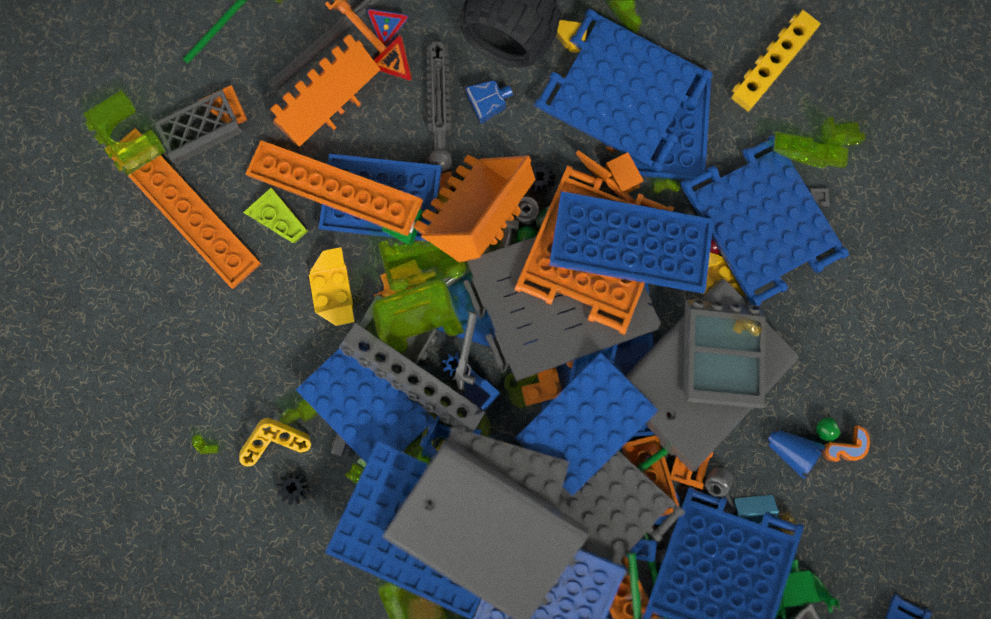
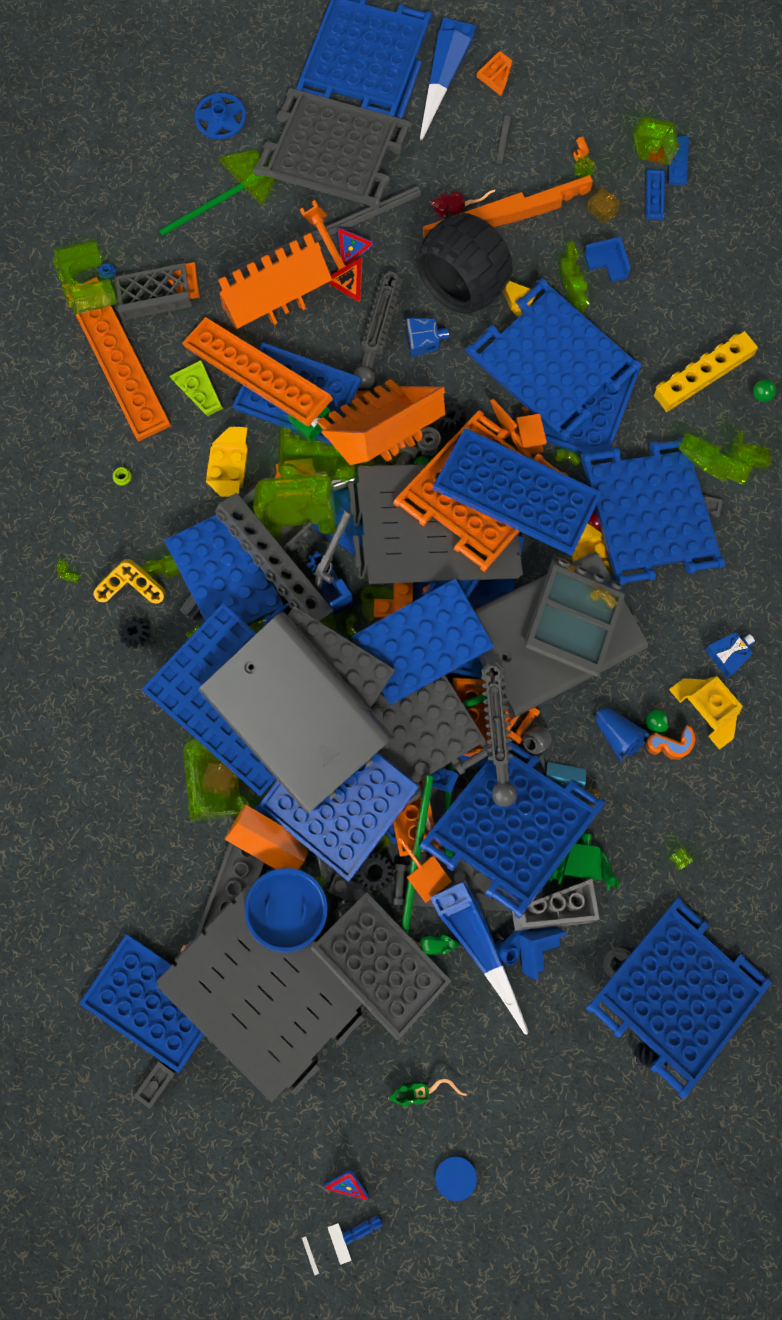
camera: 20 degrees right, 5 degrees down
(143, 122) = (109, 274): none -> blue plate
(222, 328) = (119, 471): none -> lime plate
(503, 420) = (348, 624): none -> clear neon green arm
(706, 548) = (504, 792): none -> dark grey gear
(838, 64) = (764, 390): none -> green piece
(875, 395) = (714, 704): none -> yellow piece
(879, 341) = (730, 652): none -> blue torso
(887, 557) = (681, 858): none -> clear neon green wheel

